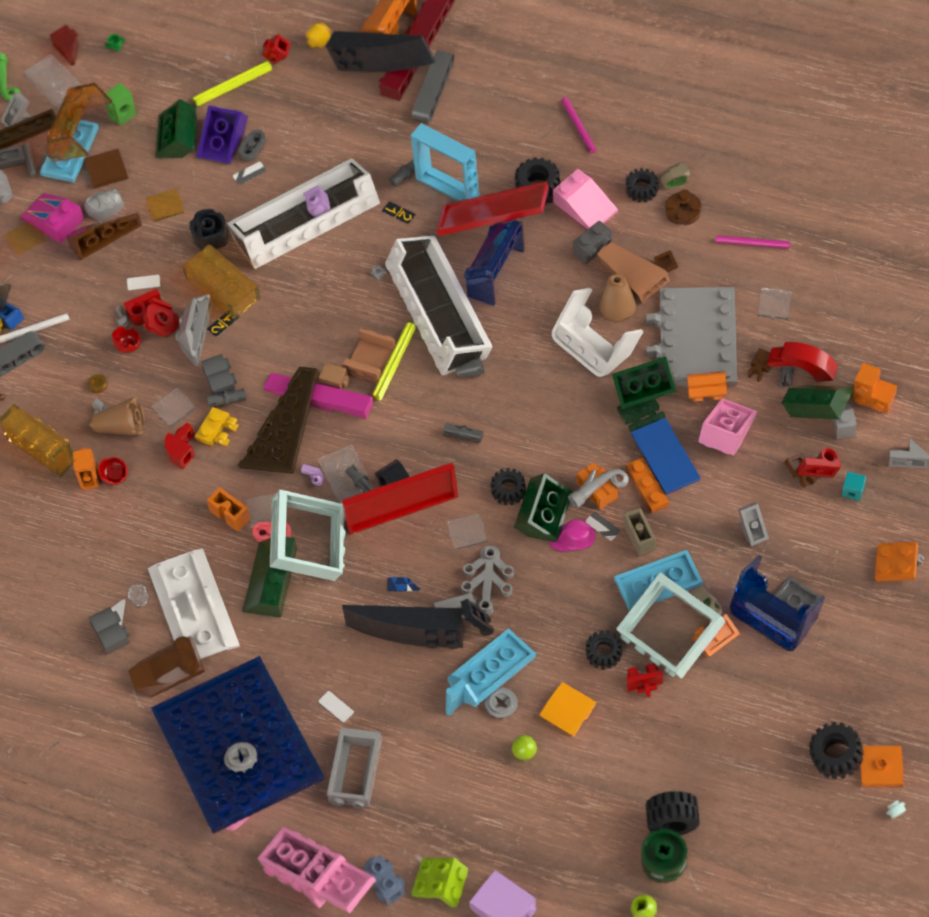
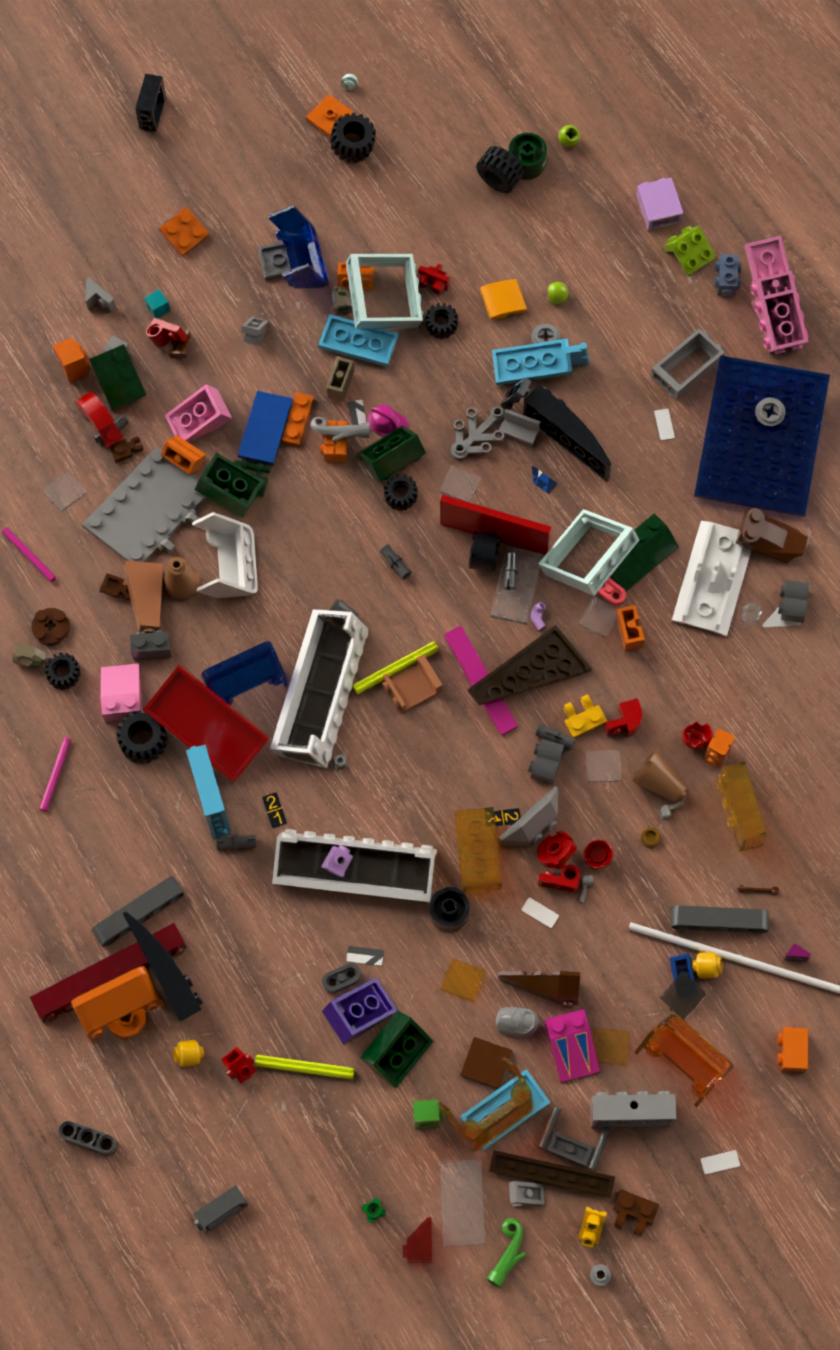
camera: 145 degrees left, 10 degrees up
(334, 376) = (456, 685): medium nougat brick -> none

